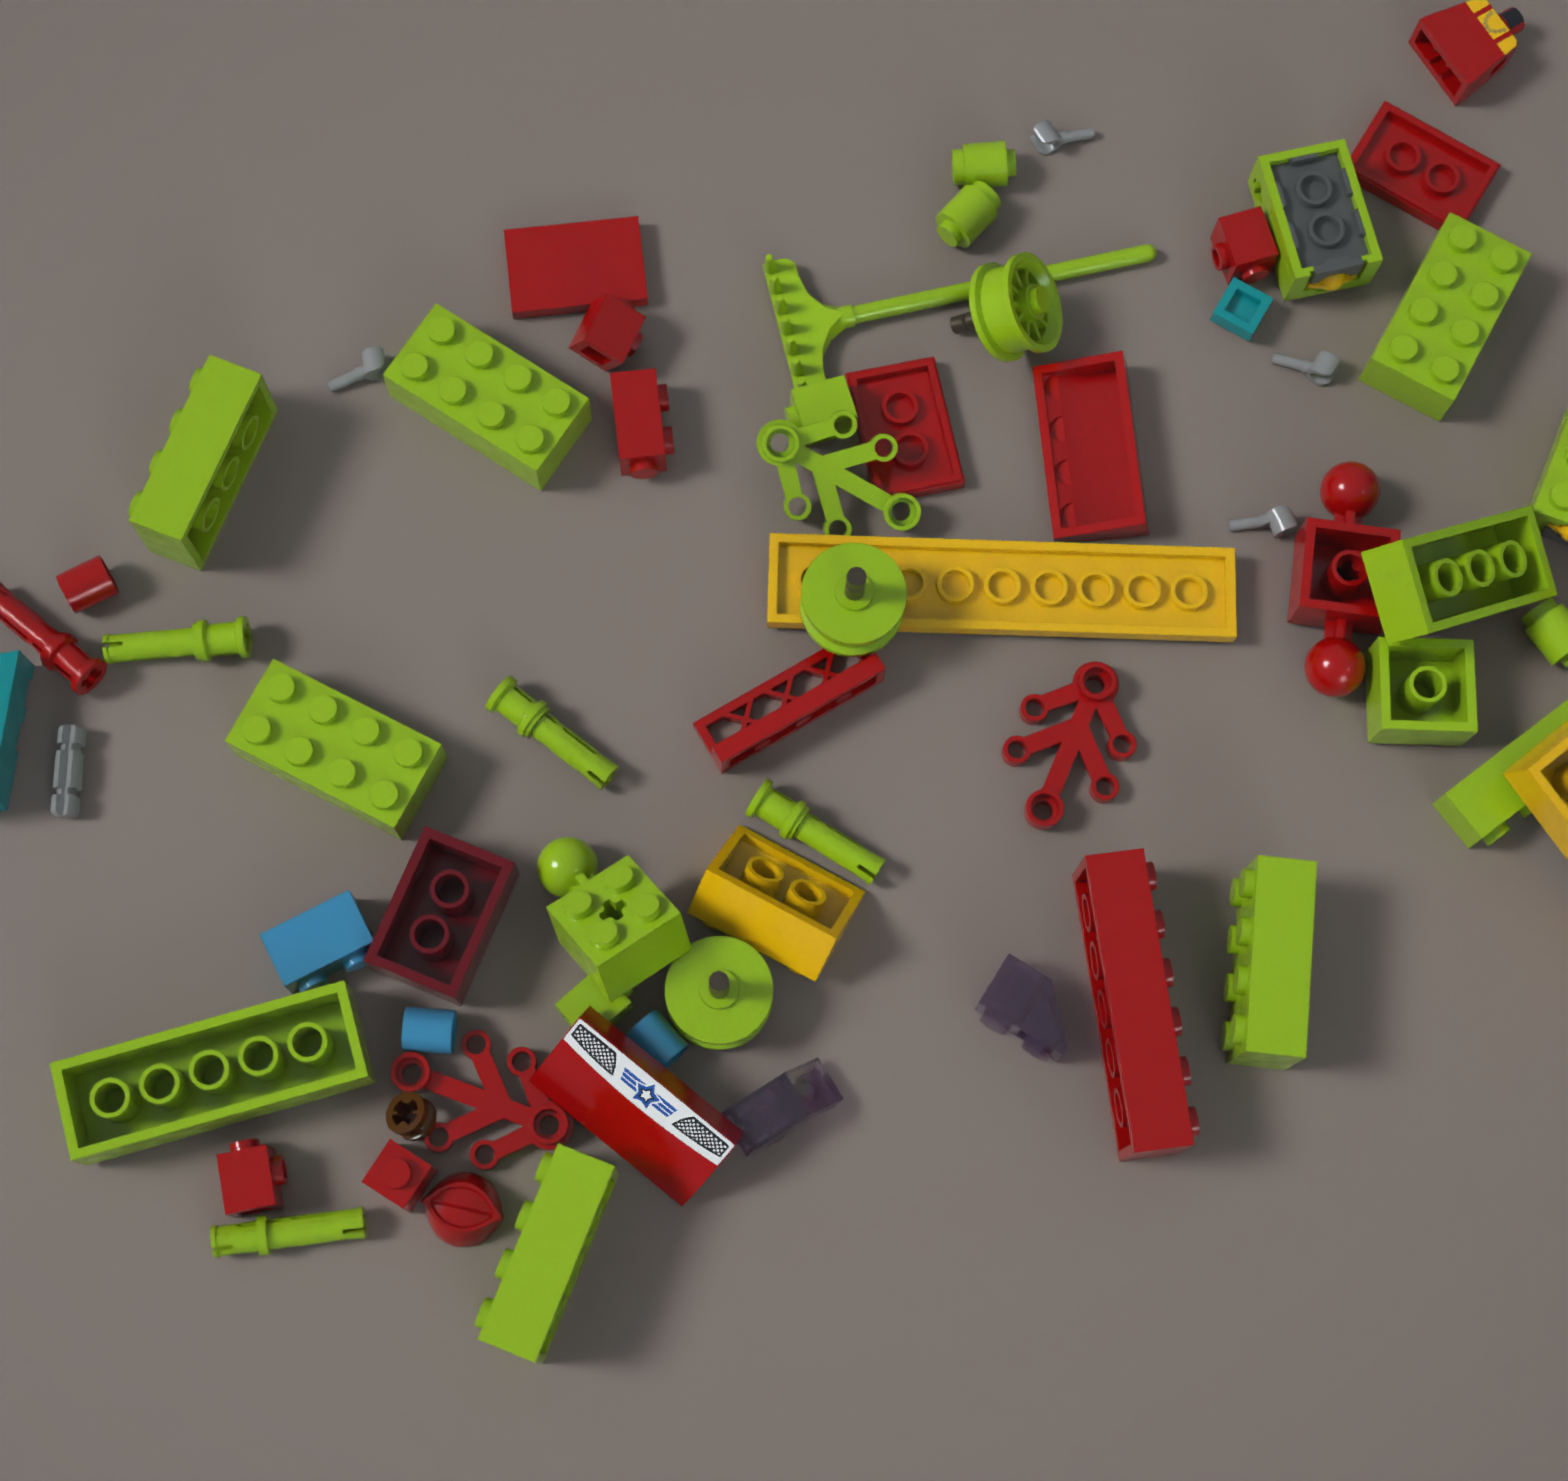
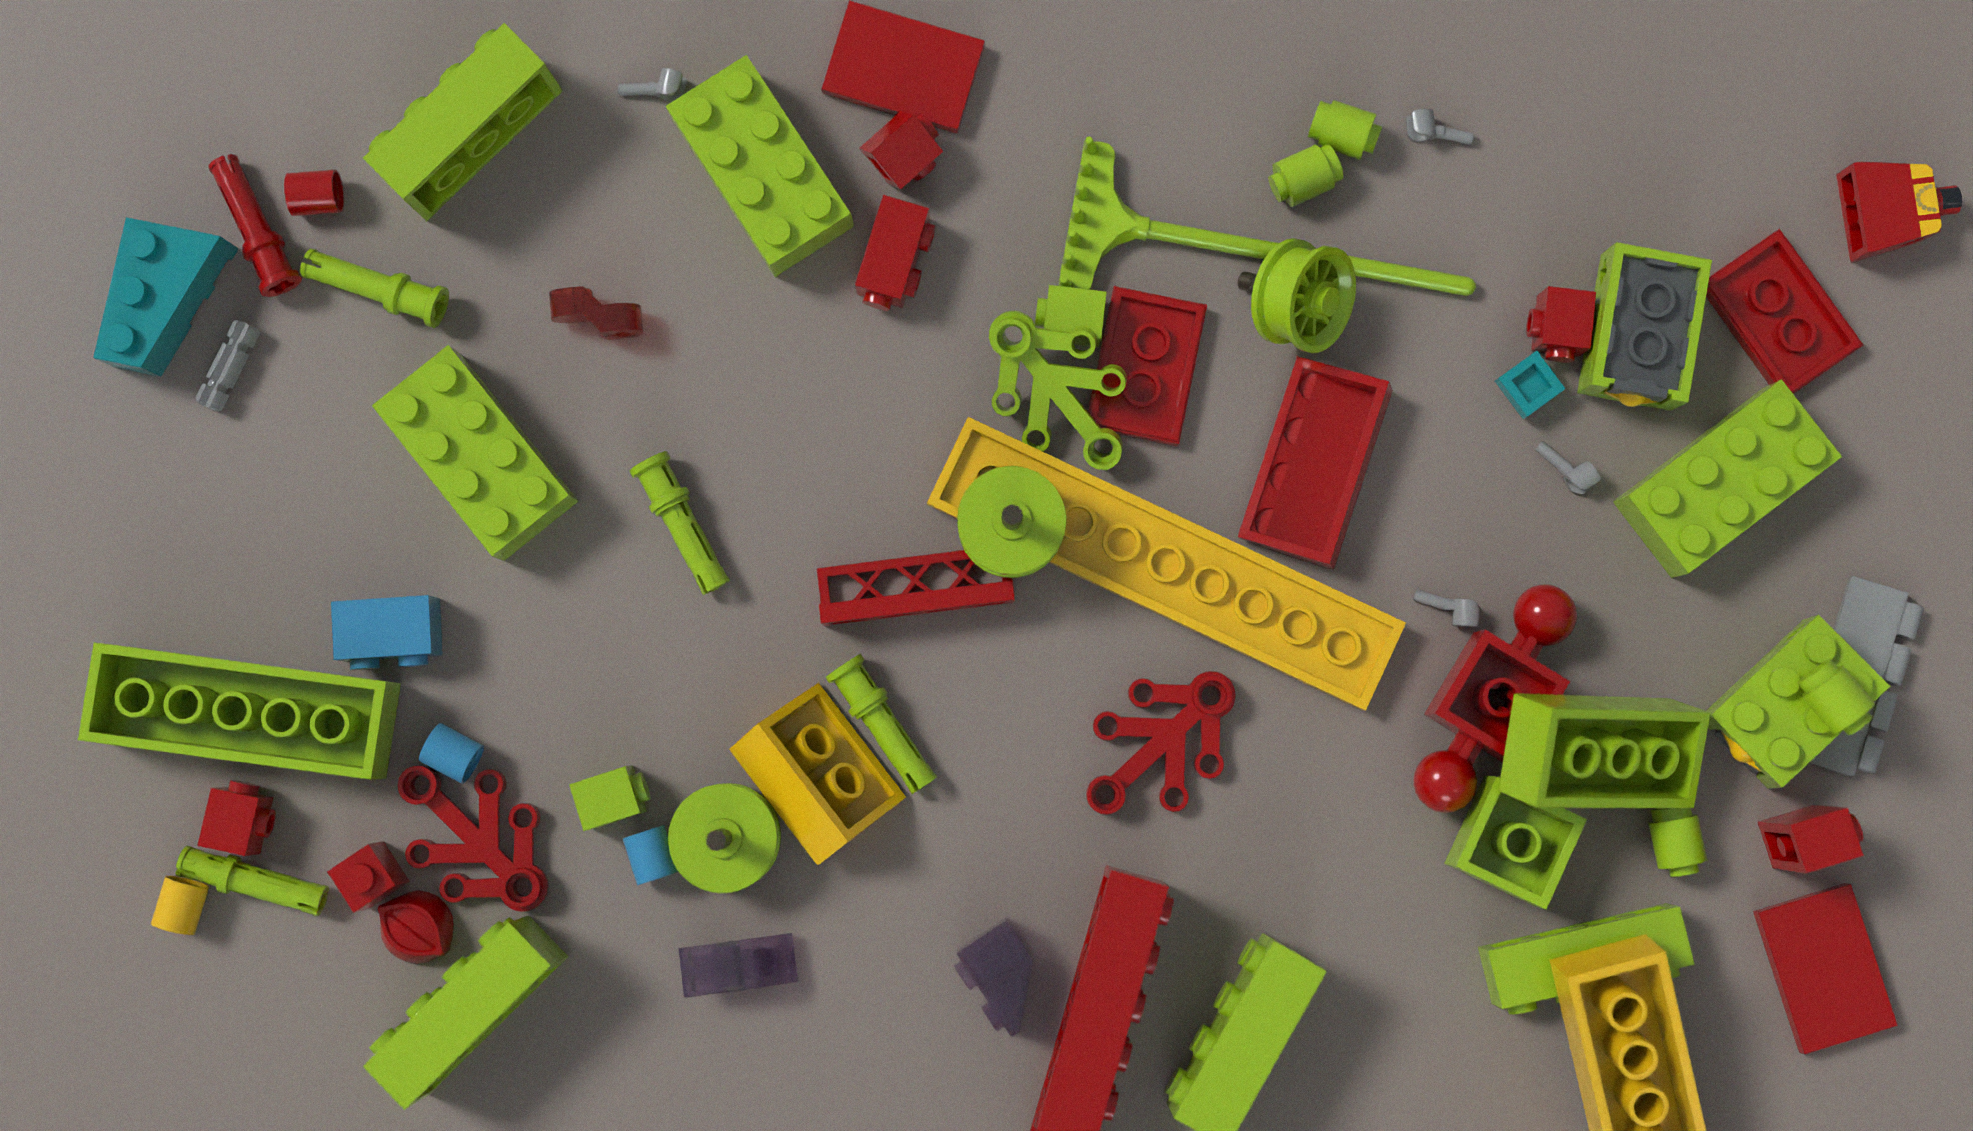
camera: 30 degrees right, 10 degrees up
(228, 1284) = (179, 905): none -> yellow beam
(397, 1116) = (391, 818): reddish brown bush -> none
(407, 584) = (580, 305): none -> clear red piece
(442, 916) = (503, 656): dark red brick -> none
(609, 921) = (654, 728): lime brick -> none
(636, 1106) = (605, 909): red slope -> none

